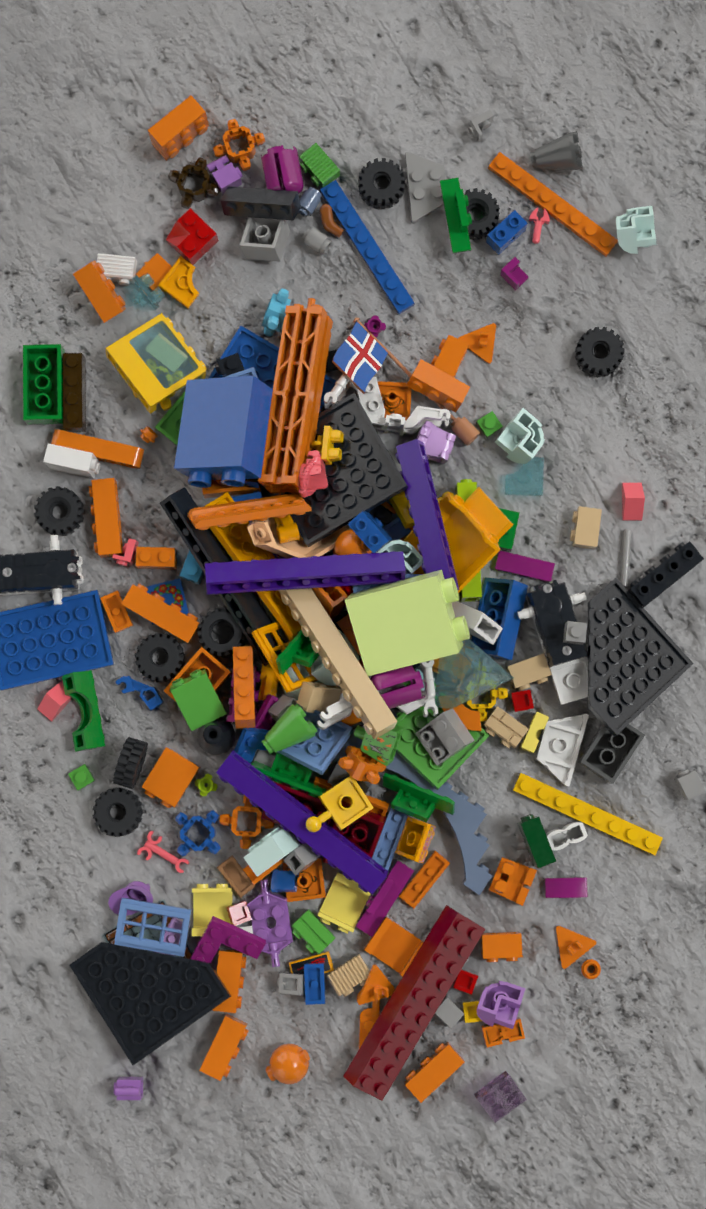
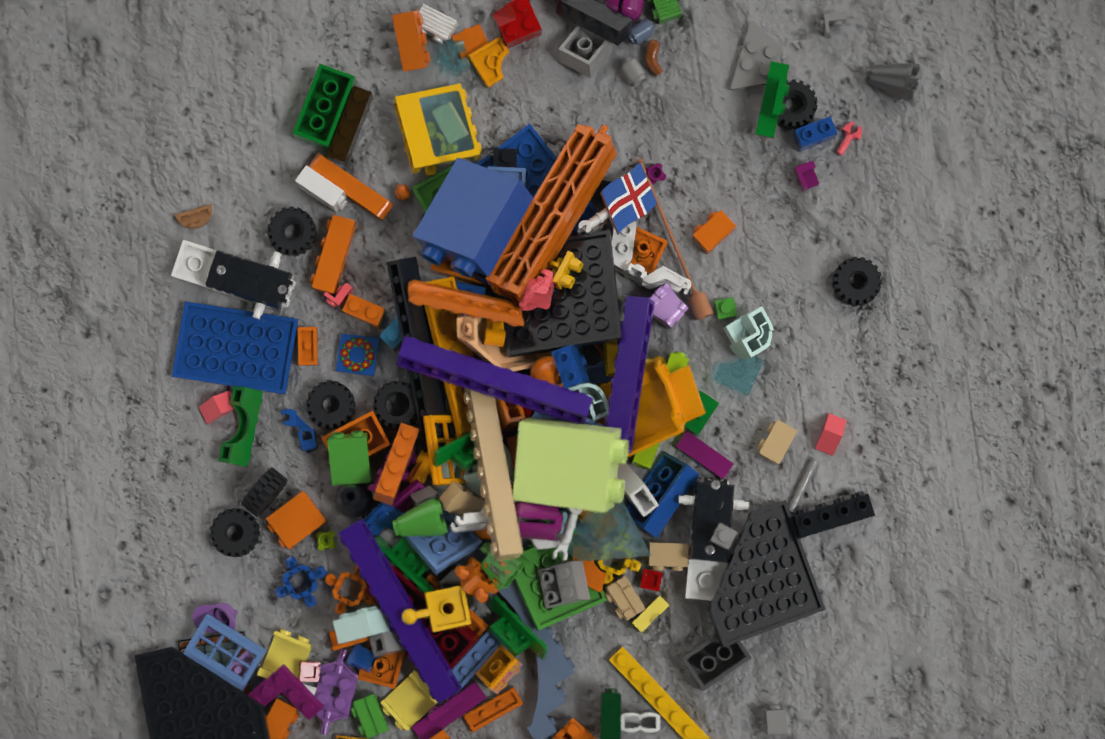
camera: 20 degrees right, 0 degrees up
(81, 777) = (214, 487): bright green plate -> none
(150, 846) = (253, 576): coral bar -> none
(158, 612) = (347, 364): orange brick -> none
(236, 876) = (320, 636): medium nougat tile -> none
(275, 312) = (566, 124): medium azure piece -> none
(367, 247) = (678, 96): blue plate -> none
(377, 196) = (706, 51): black tyre -> none
(438, 386) = (691, 254): orange brick -> none
(481, 342) = (750, 227): orange piece -> none
(554, 204) = (870, 124): orange plate -> none
(561, 746) = (670, 637): white wing -> none
(636, 229) = (938, 179): light aqua brick -> none

